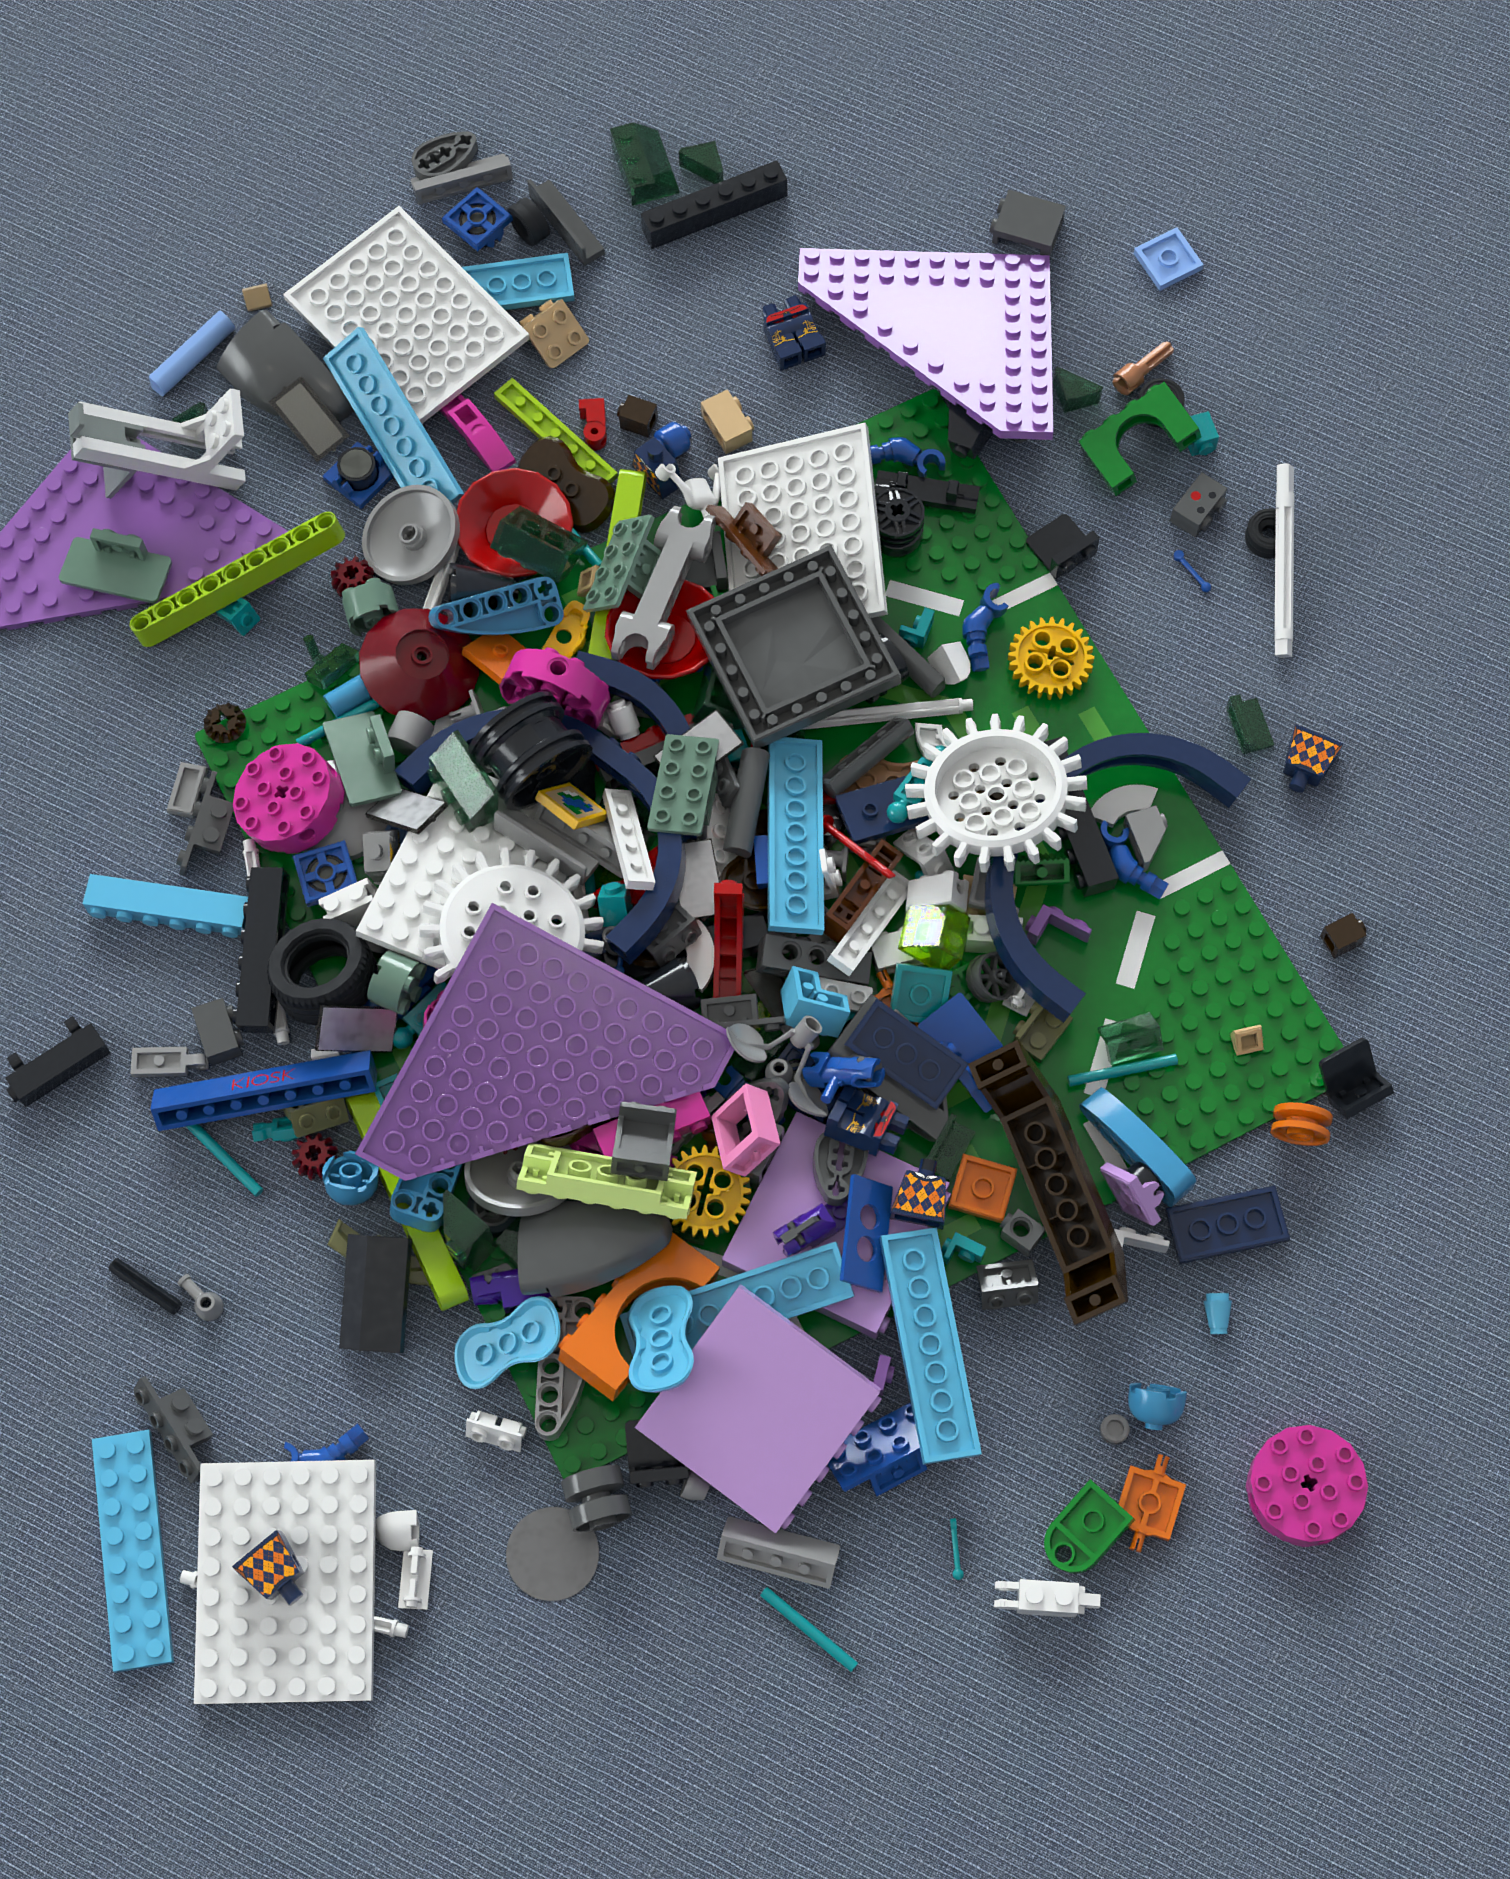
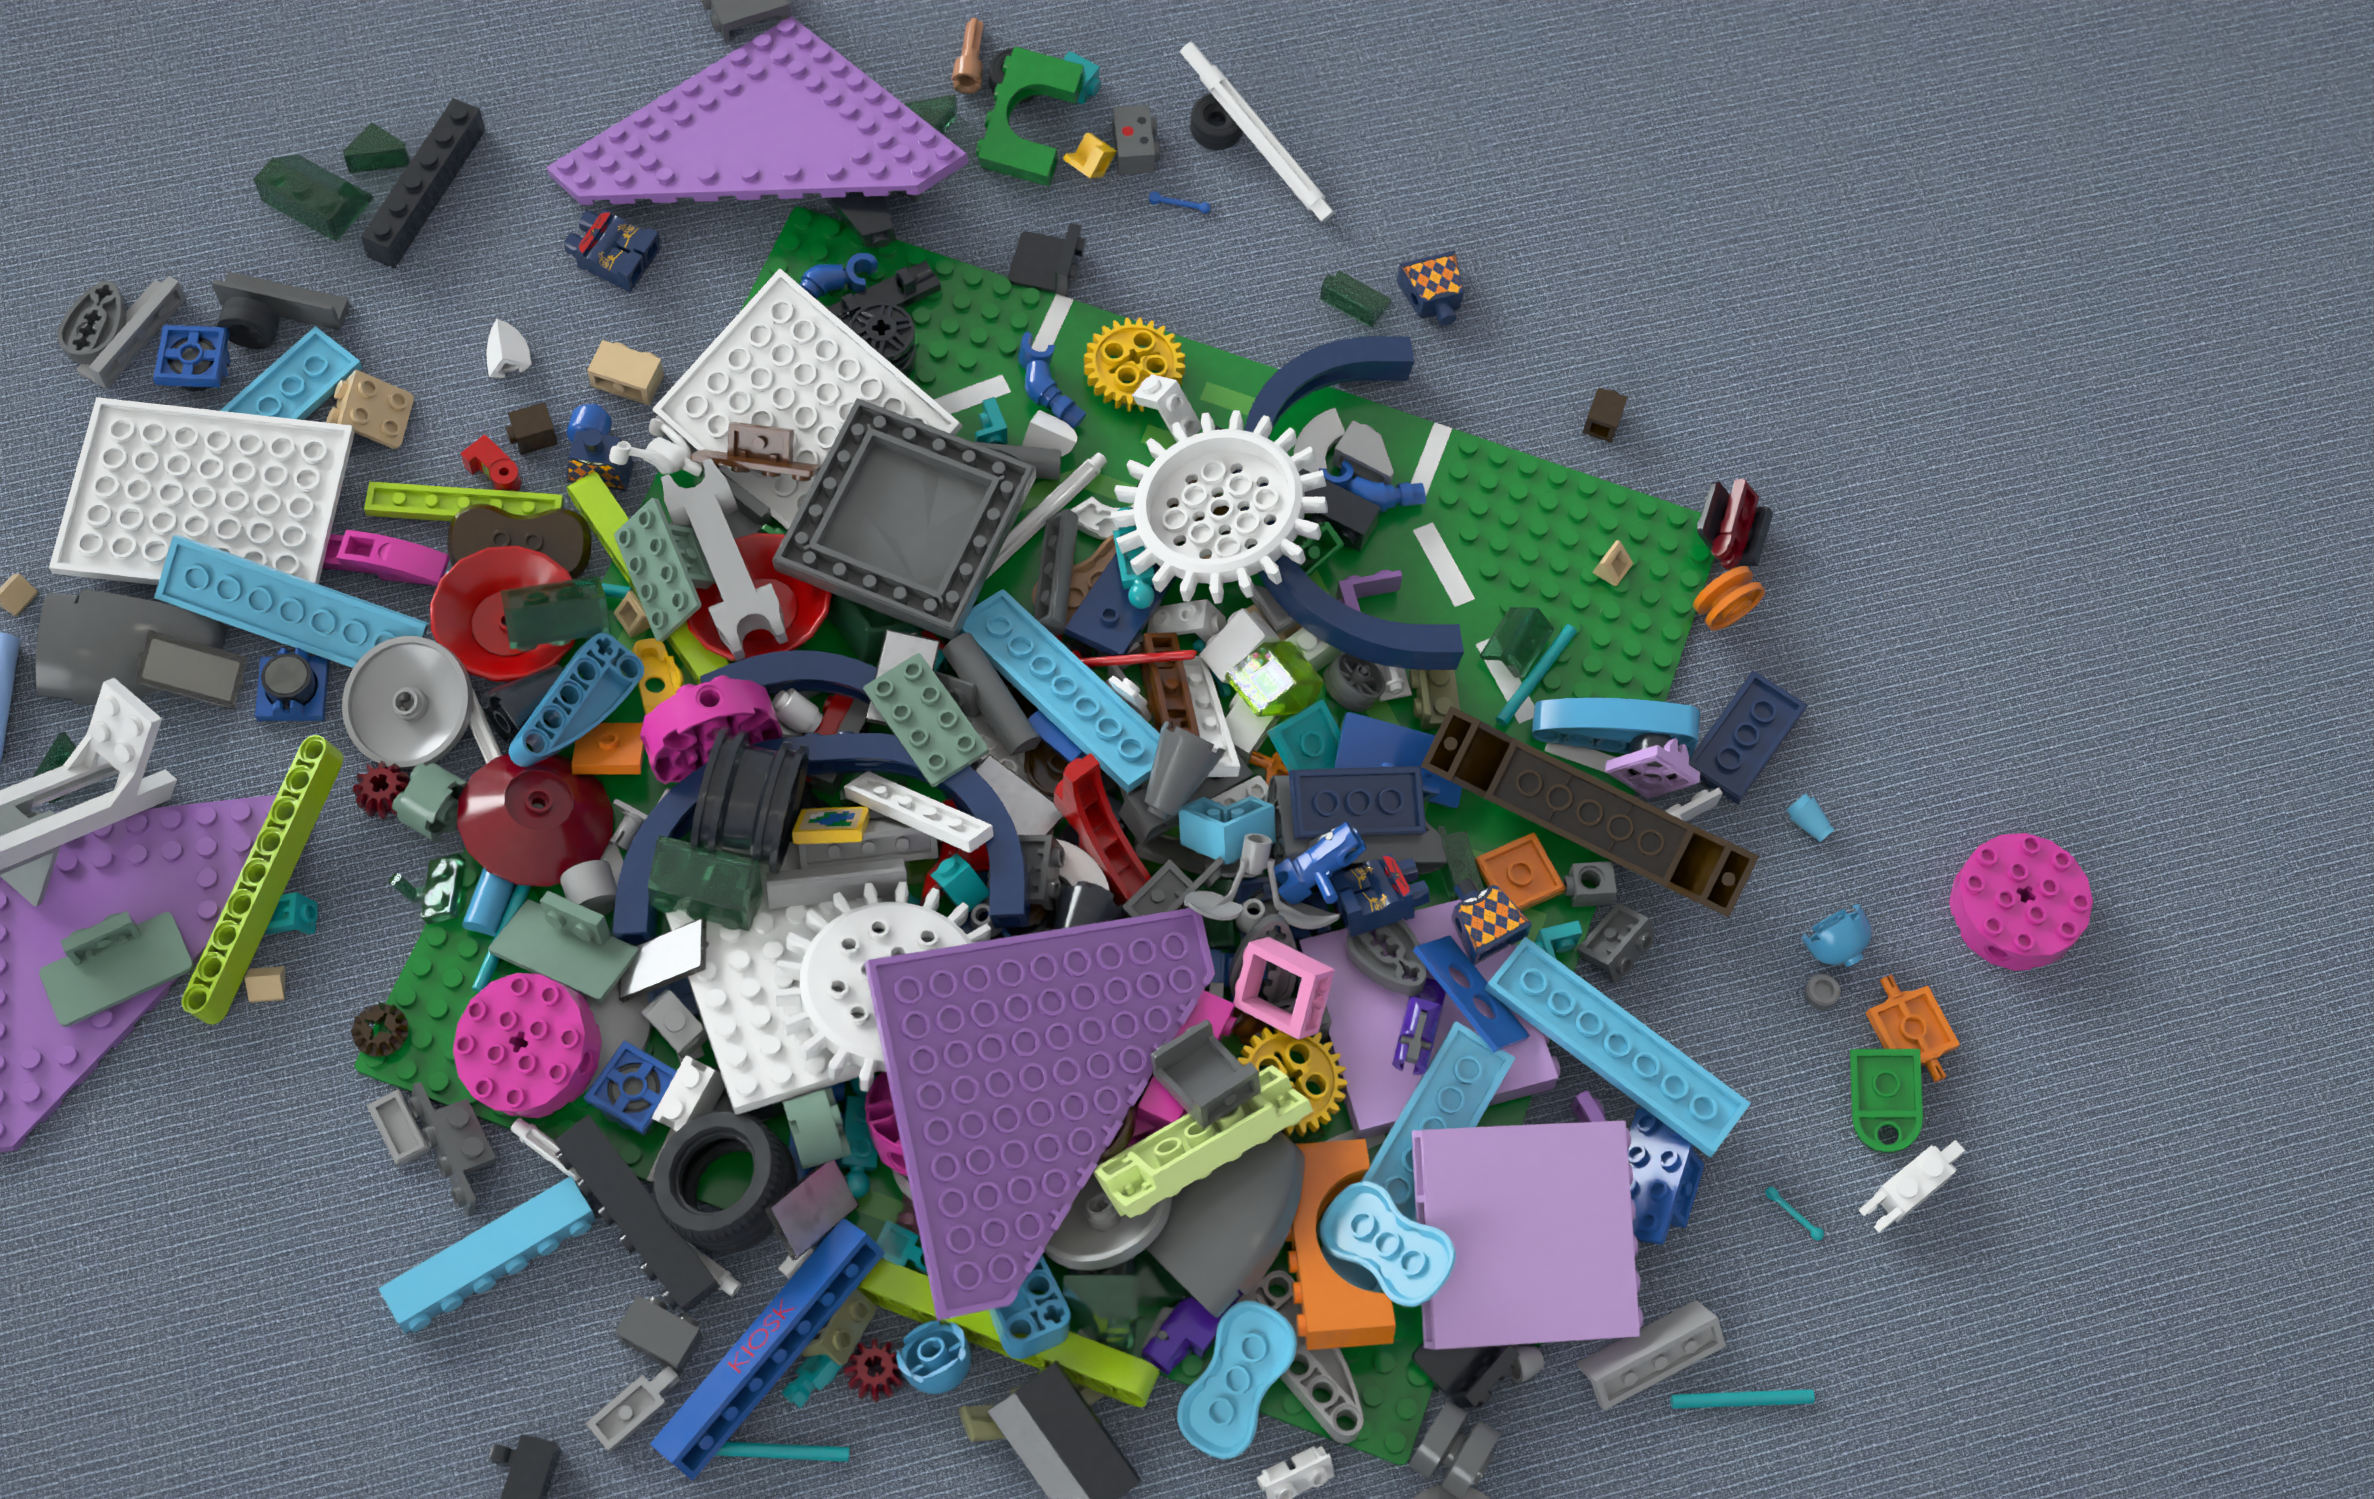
camera: 50 degrees left, 5 degrees down
(190, 644) = (265, 984): none -> tan slope
(669, 353) = (506, 350): none -> white brick
(809, 939) = (1178, 769): none -> dark grey cone
(1043, 702) = (1170, 401): none -> white bracket
(1157, 497) = (1091, 156): none -> yellow panel
(1357, 1079) = (1736, 524): none -> dark red hinge

